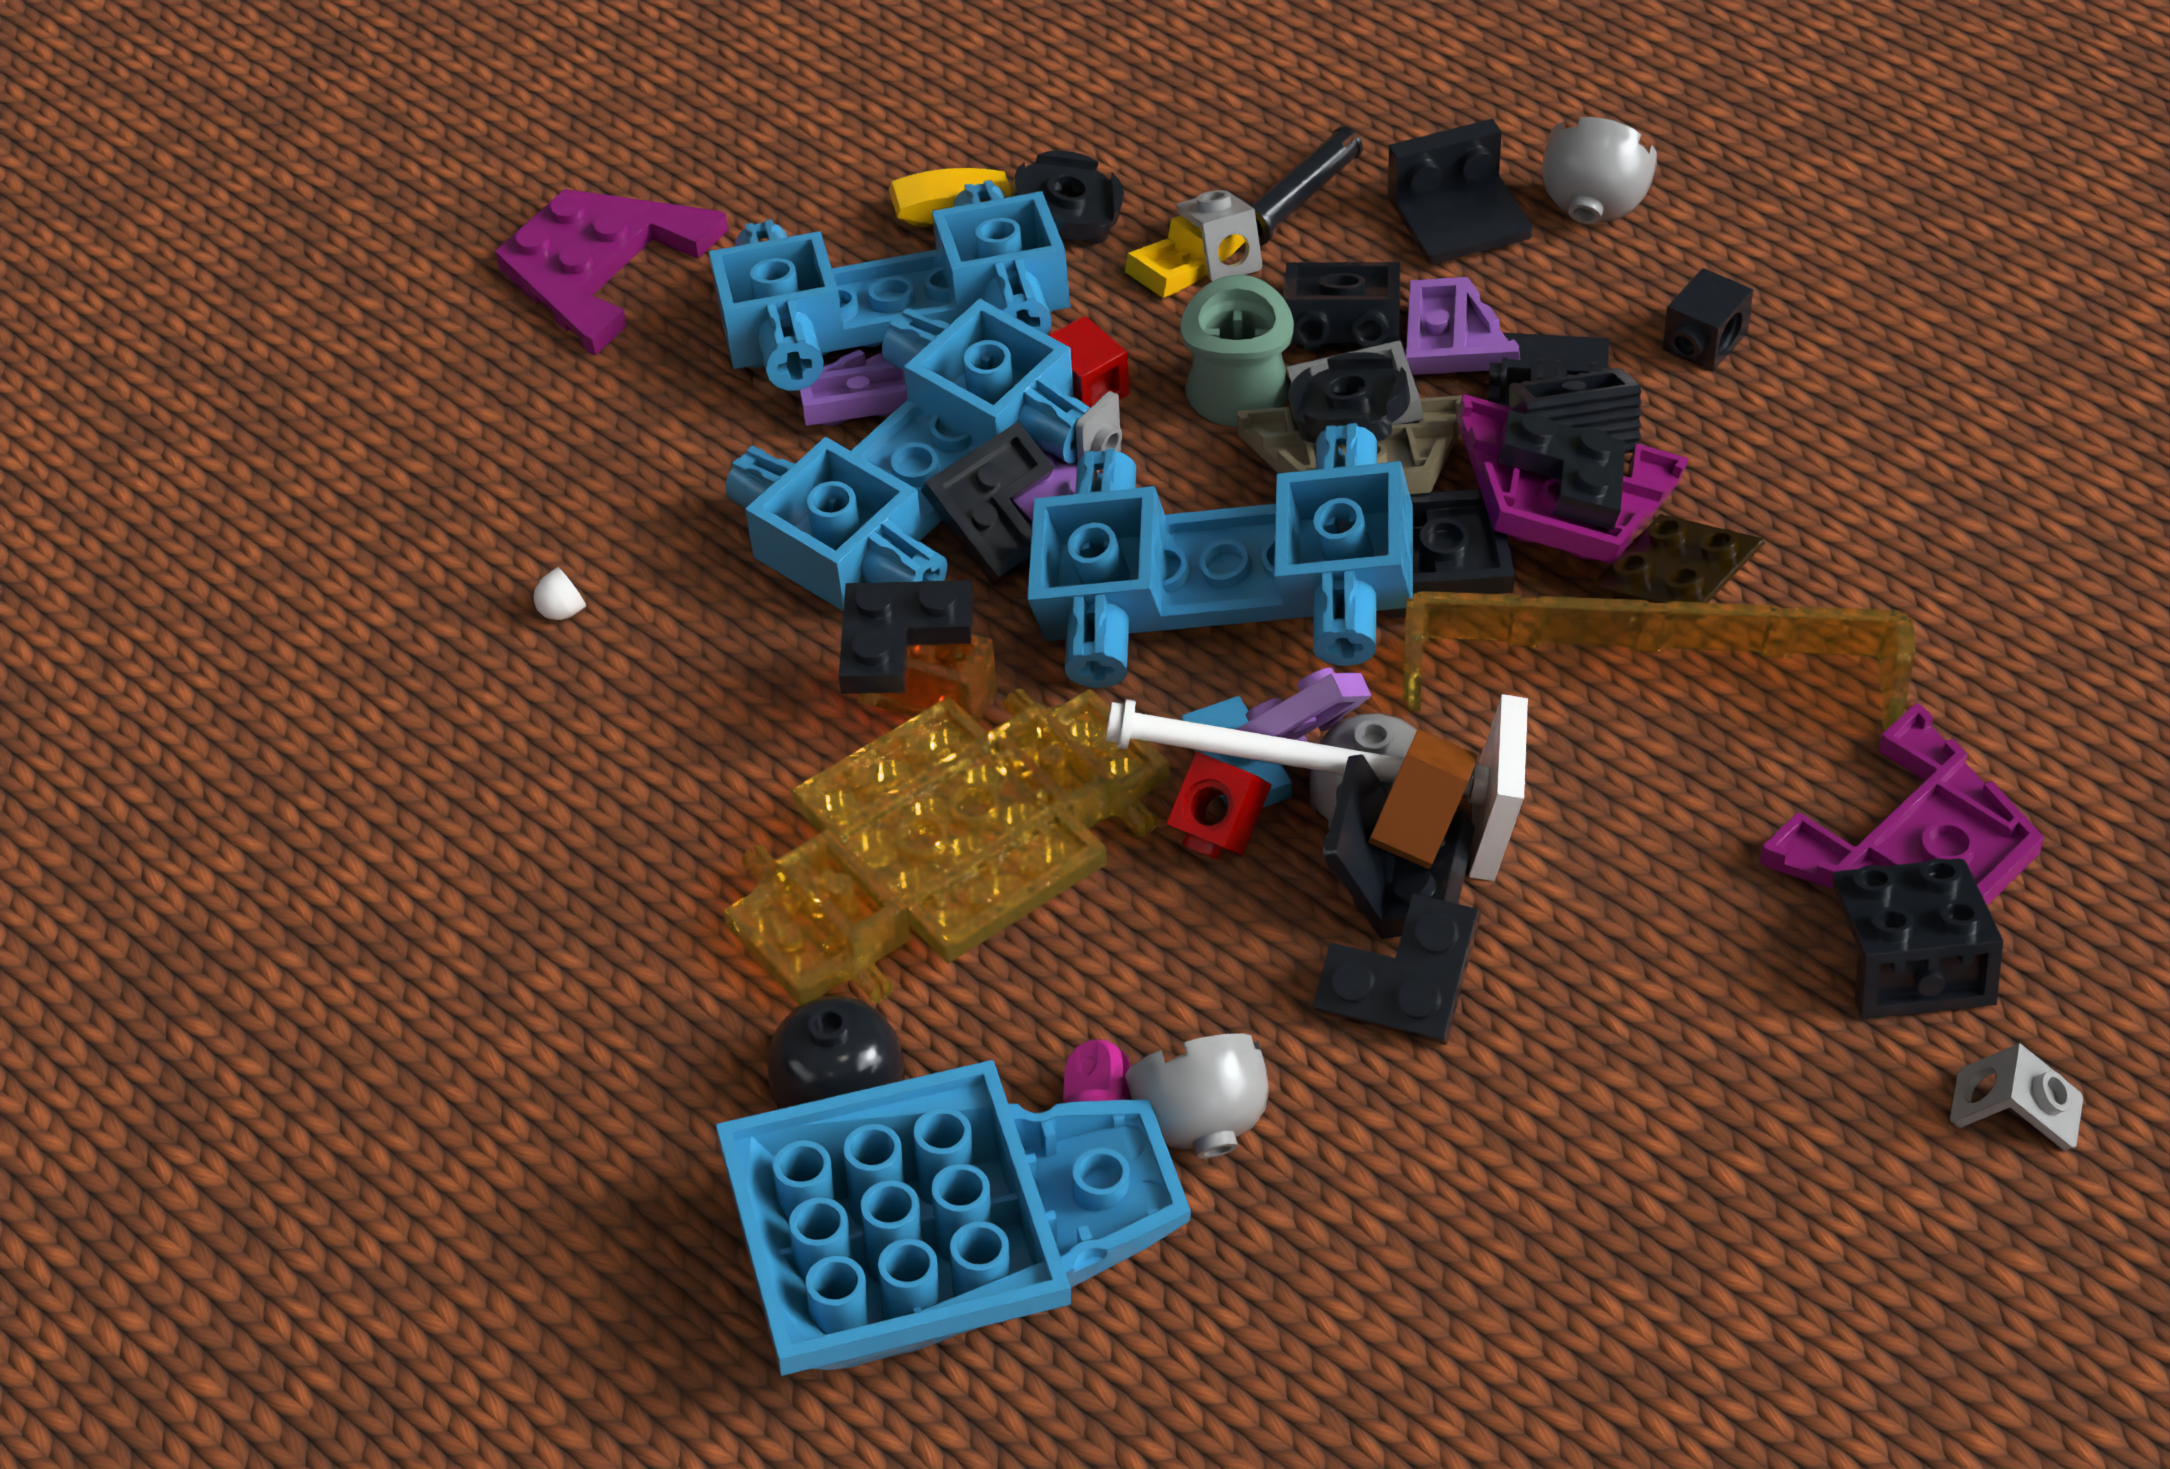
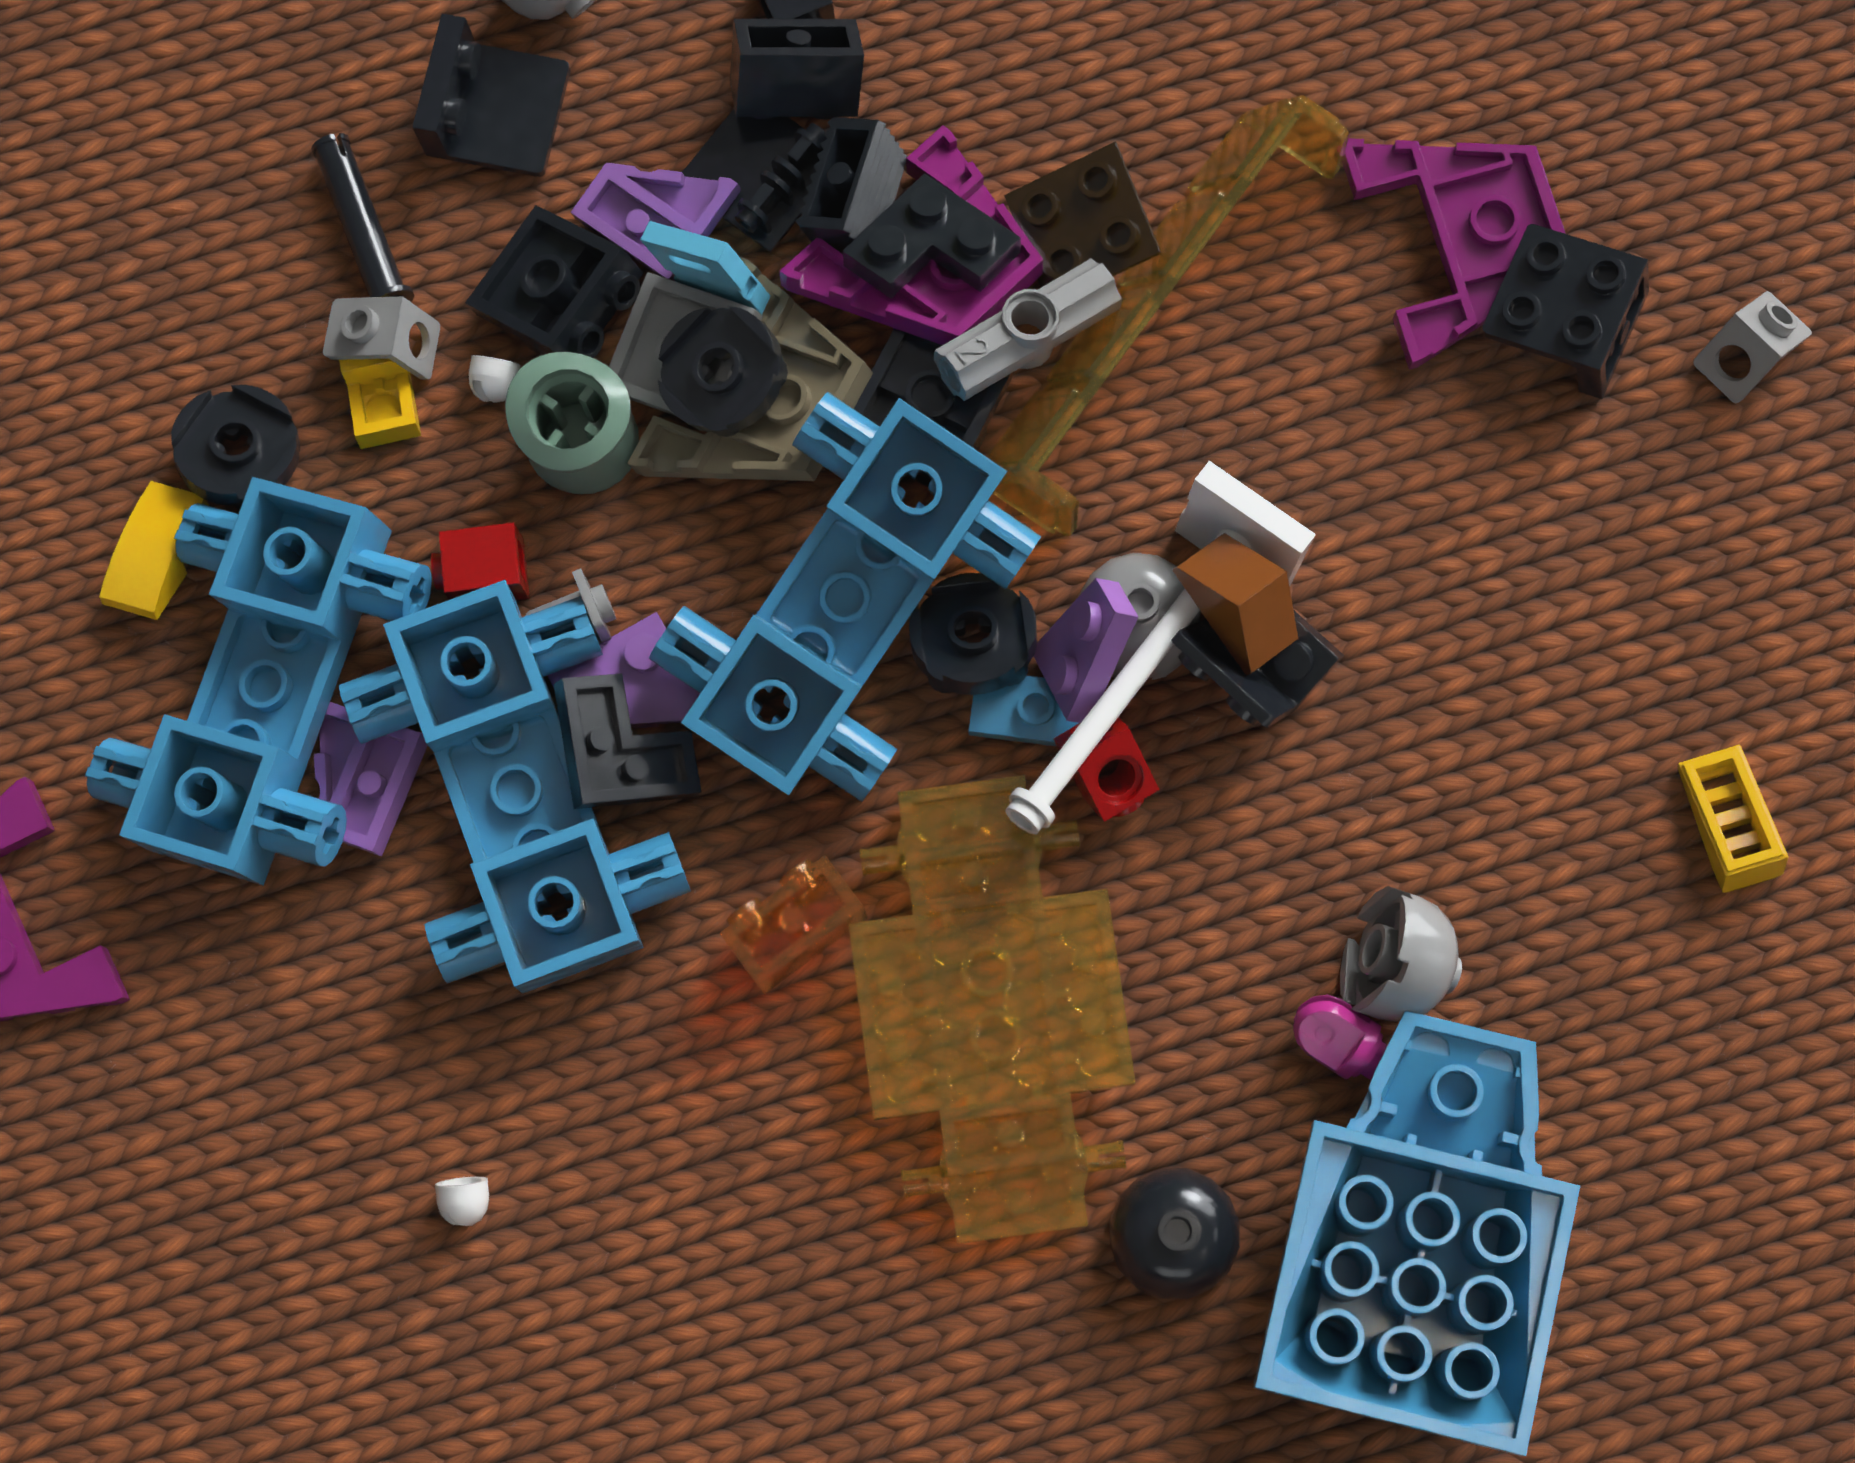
camera: 55 degrees left, 30 degrees up
(889, 617) = (750, 936): black plate -> none
(1256, 667) = (980, 666): none -> black plate
(1409, 992) = (1384, 725): black plate -> none
(1426, 349) = (705, 264): none -> medium azure piece
(1515, 1345) = (1750, 869): none -> yellow slope
(1544, 551) = (1056, 309): none -> light grey piece
(1643, 333) = (796, 68): none -> black brick

